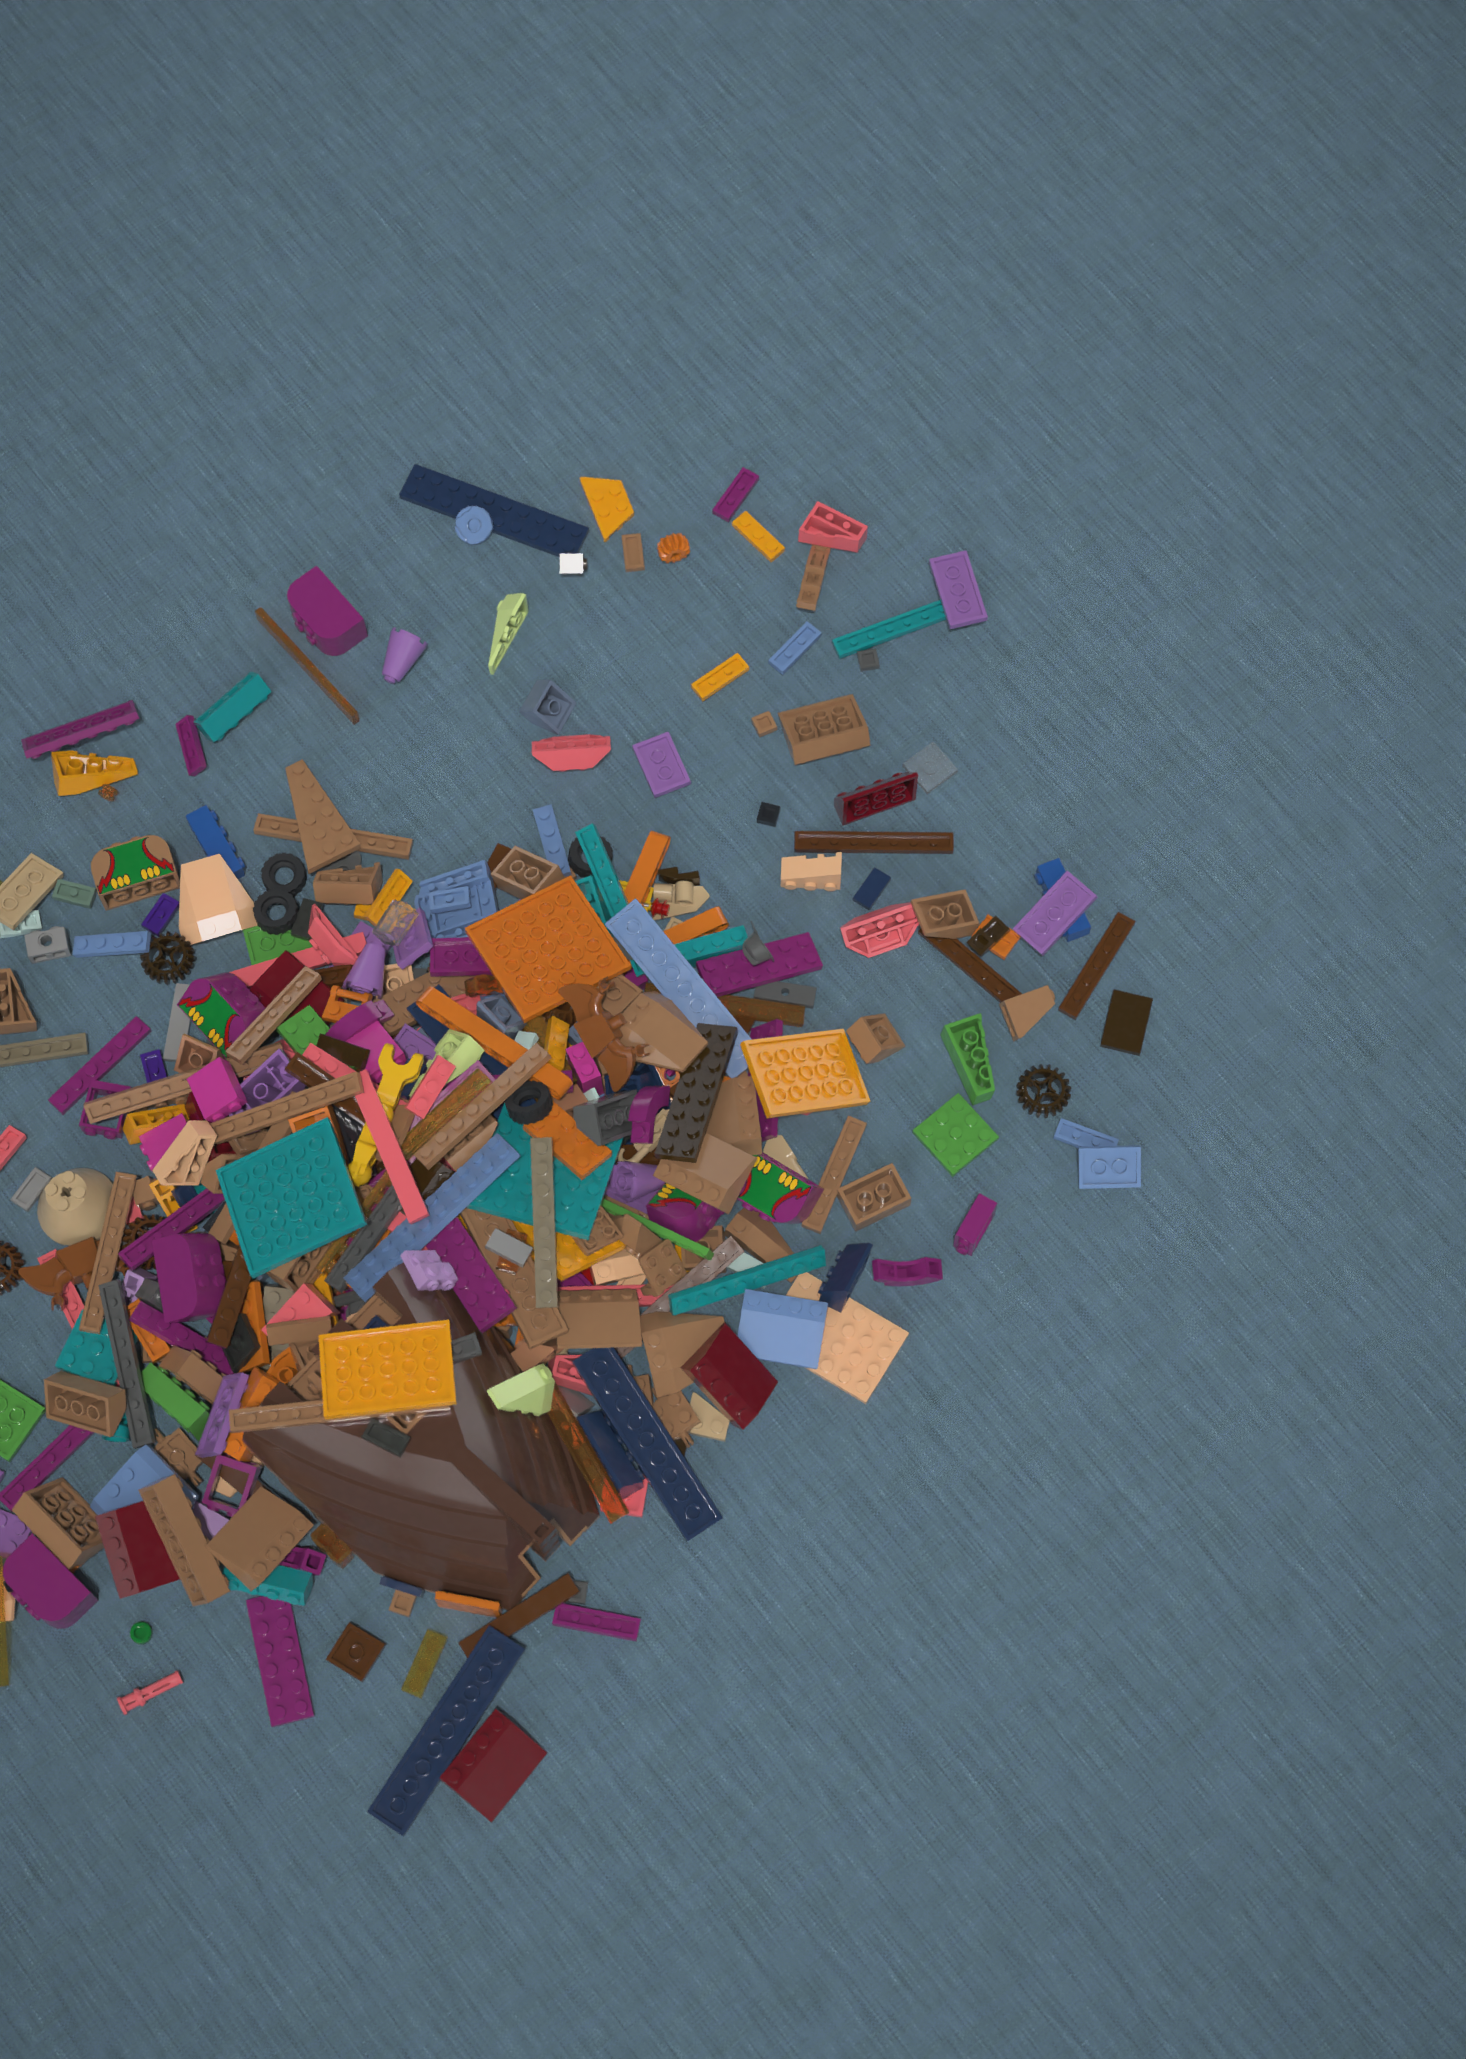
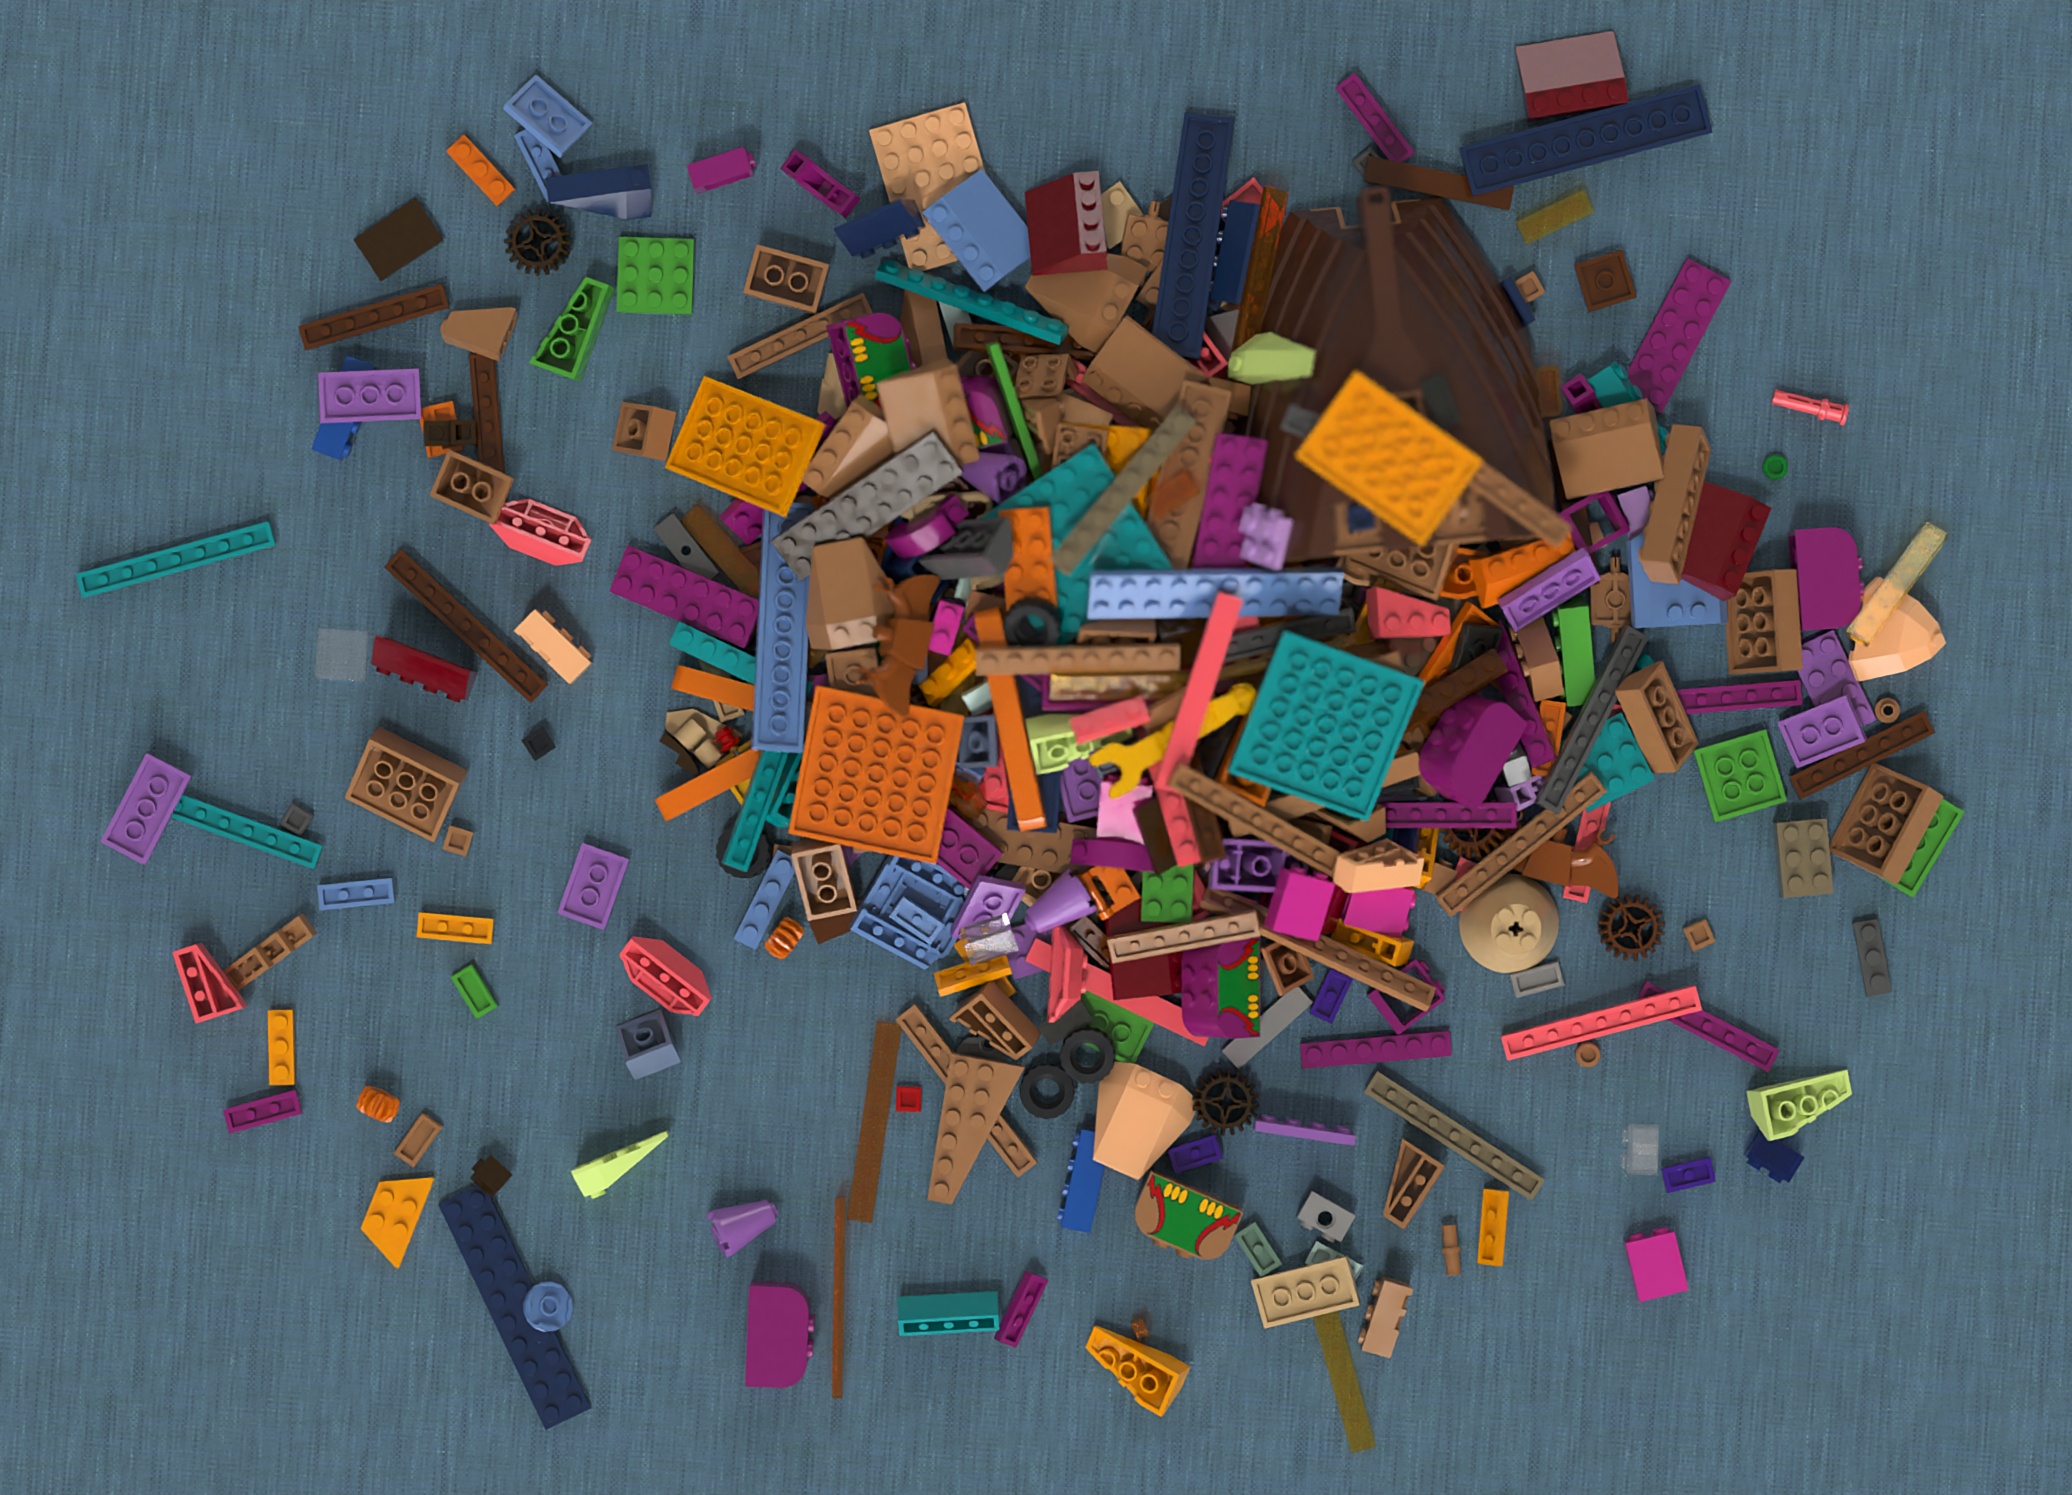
camera: 140 degrees left, 20 degrees up
(74, 731) = (1113, 1419): magenta plate -> none
(102, 977) = (1314, 1131): none -> medium lavender plate
(111, 944) = (1266, 1160): medium blue plate -> none
(297, 1330) = (1419, 598): medium nougat tile -> none
(364, 805) = (908, 1099): none -> red tile
(373, 776) = (874, 1122): none -> clear orange tile
(468, 1604) = (1474, 231): orange tile -> none
(508, 1247) = (1173, 497): light grey tile -> none
(520, 826) = (784, 938): none -> orange gear
(676, 654) = (474, 991): none -> bright green tile
(755, 949) = (682, 608): dark grey piece -> none
(871, 888) = (510, 582): dark blue tile -> none
(1029, 1156) = (610, 192): none -> dark blue wedge
(1075, 737) = (176, 559): none -> teal plate
(1118, 1104) = (480, 170): none -> orange plate

